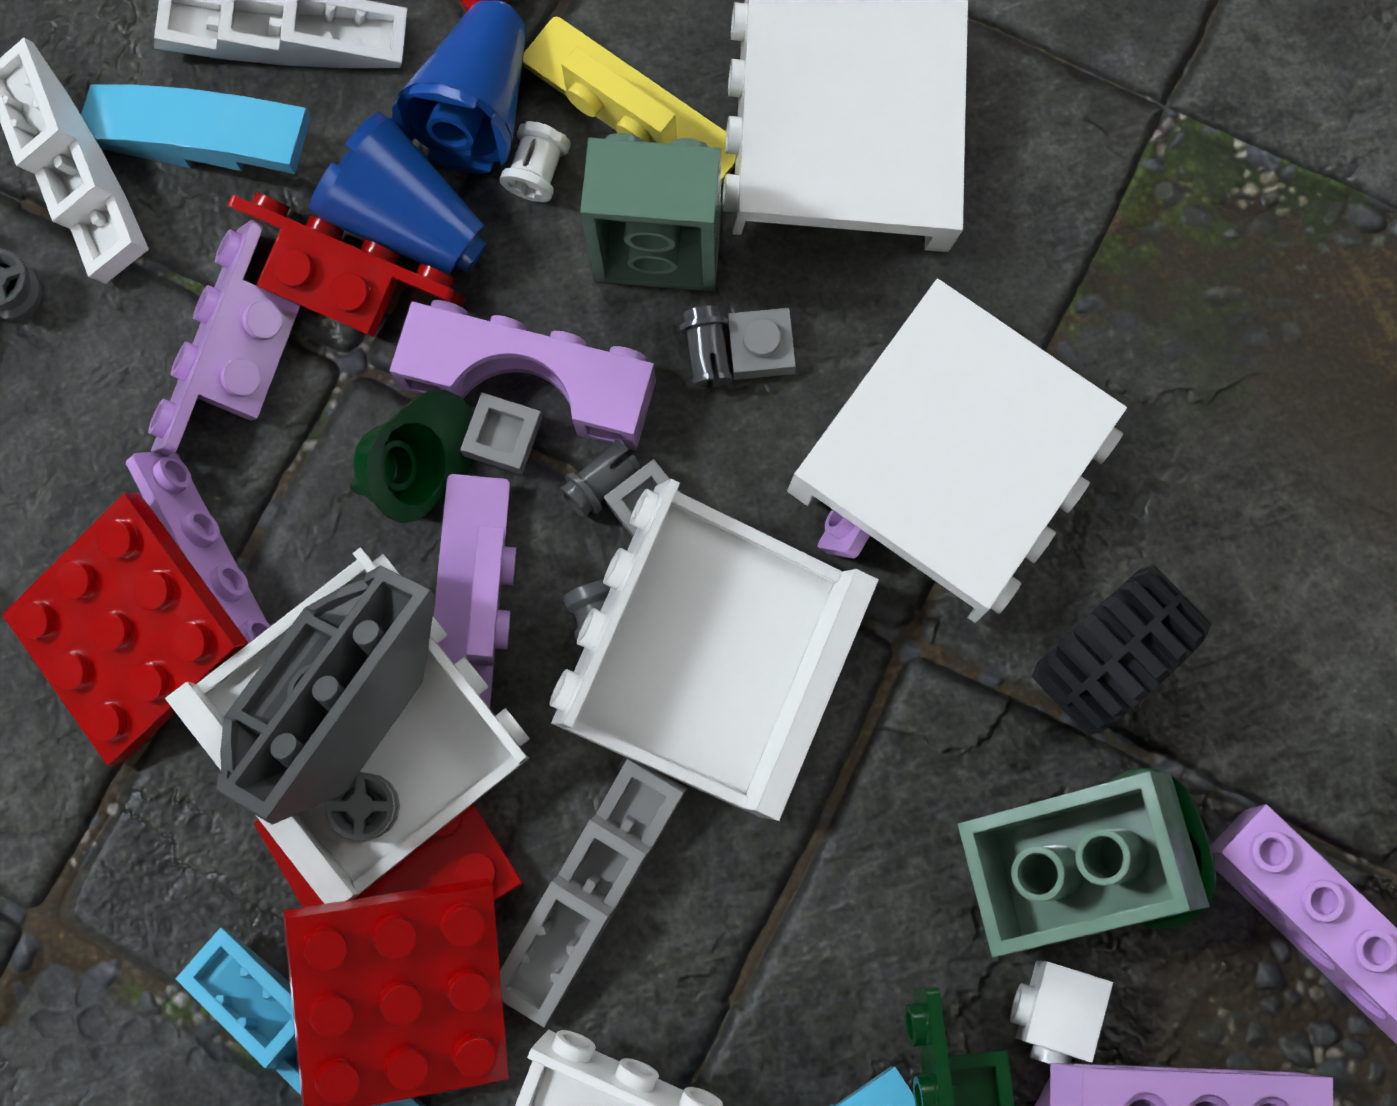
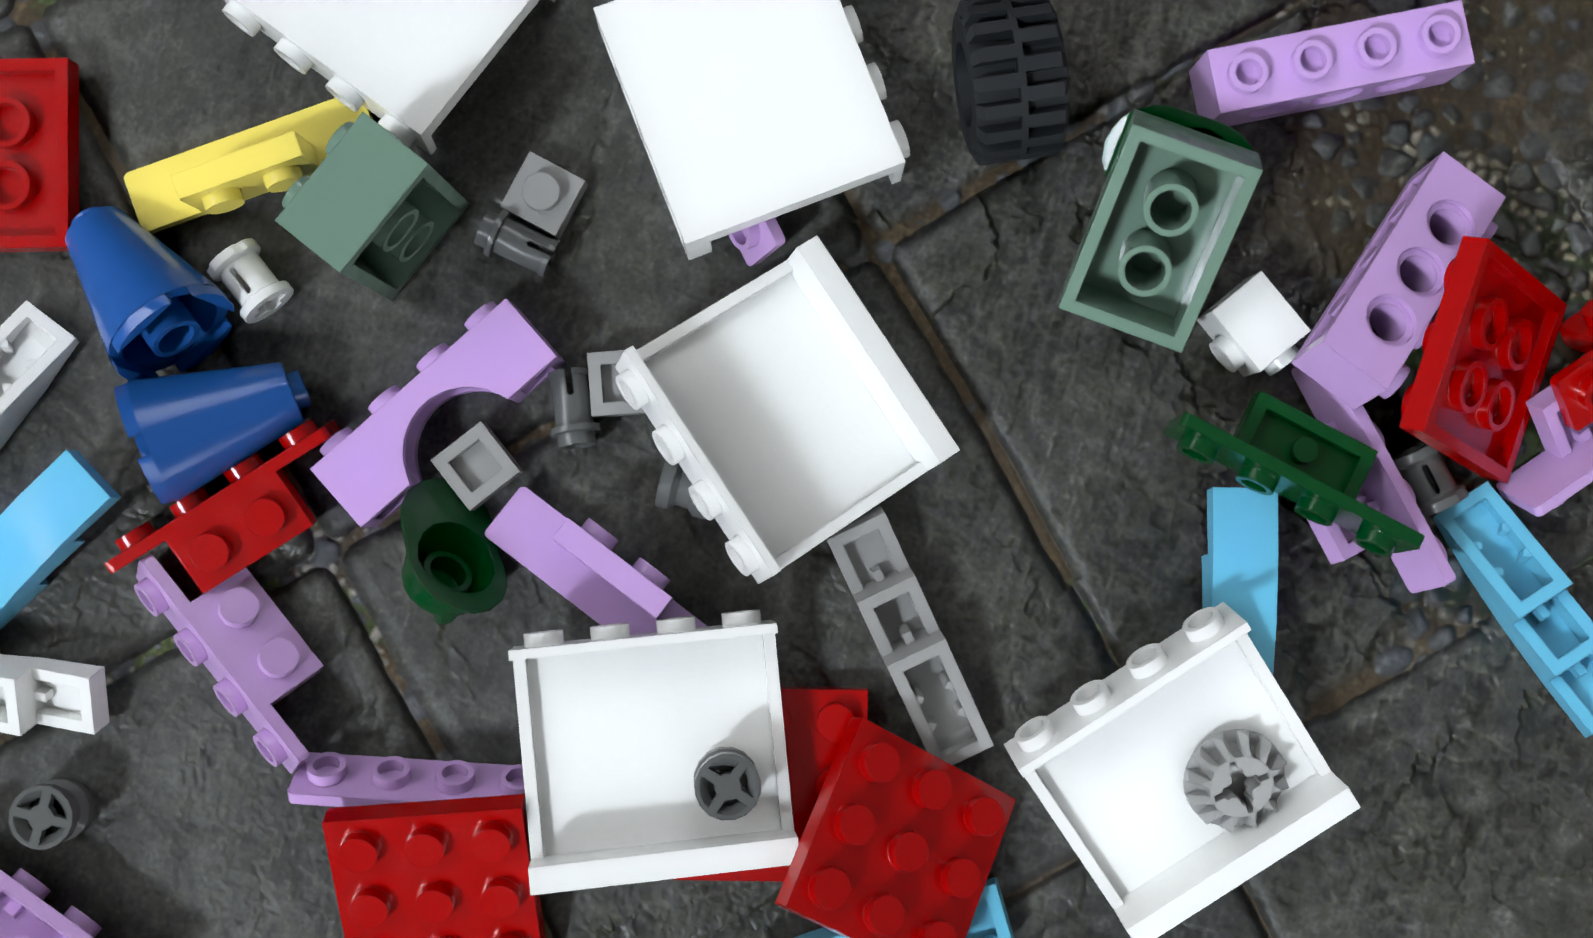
camera: 60 degrees left, 10 degrees up
(326, 696) = (618, 760): dark grey wedge -> none

